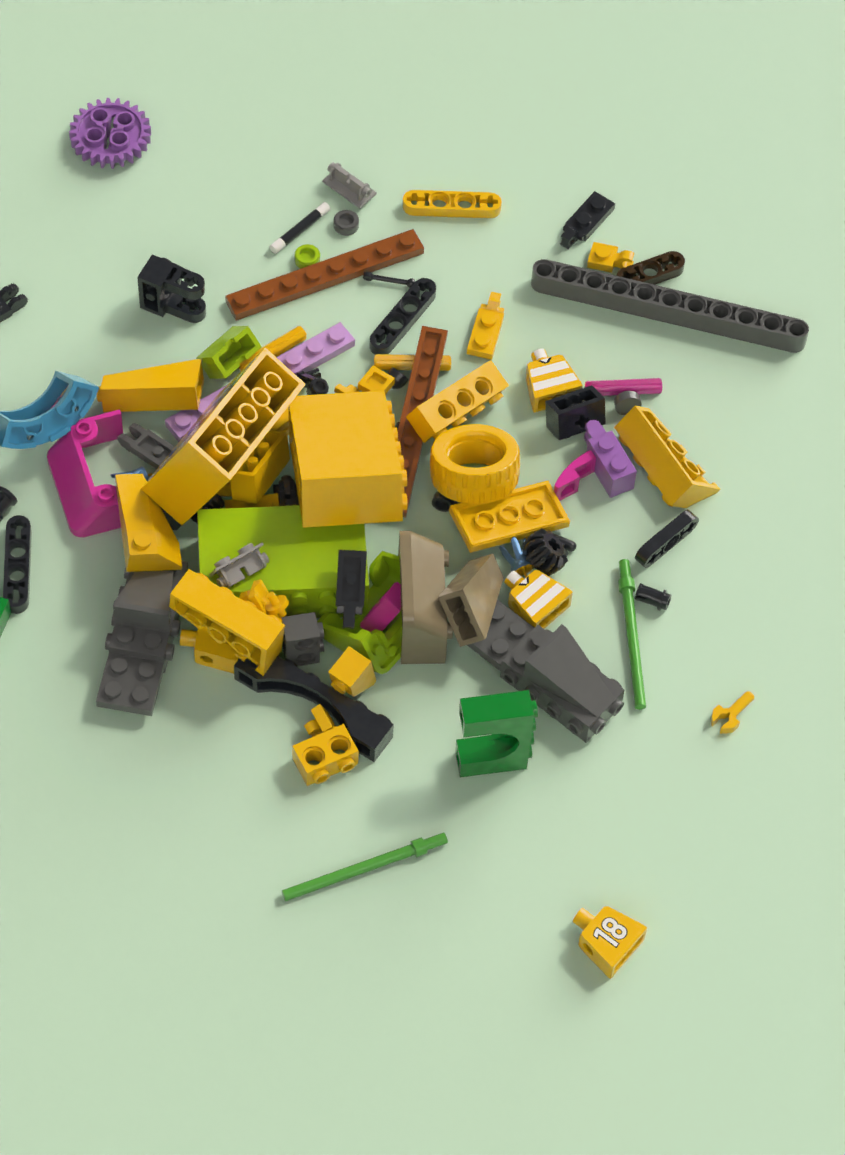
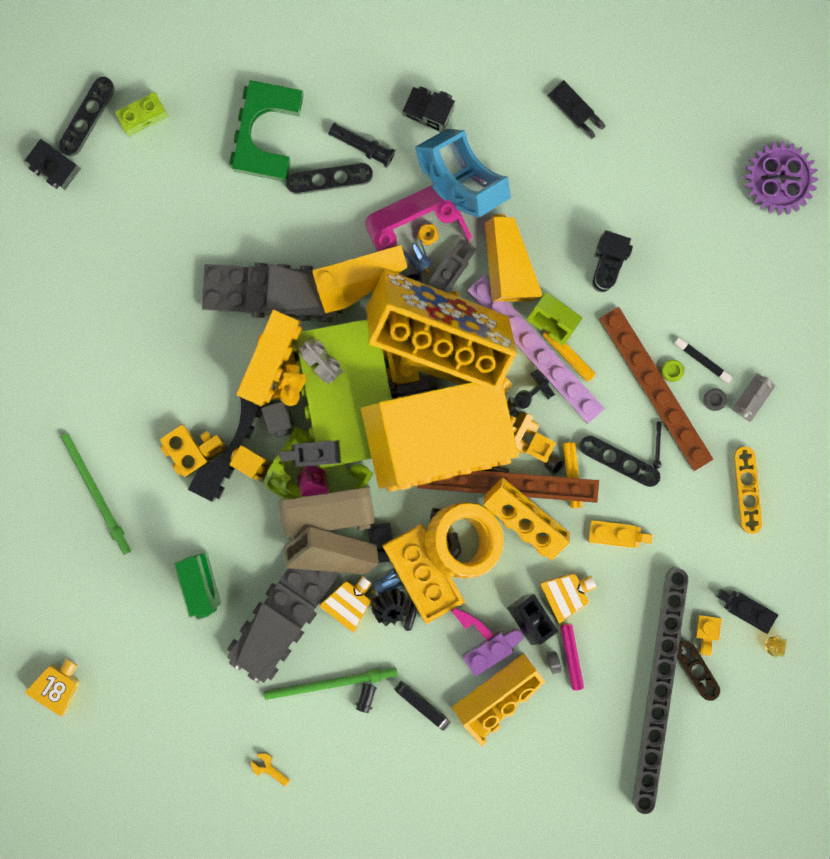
camera: 85 degrees right, 30 degrees up
(101, 465) = (428, 240): none -> yellow plate
(459, 558) = (379, 535): none -> black plate
(629, 195) = (775, 646): none -> clear yellow plate

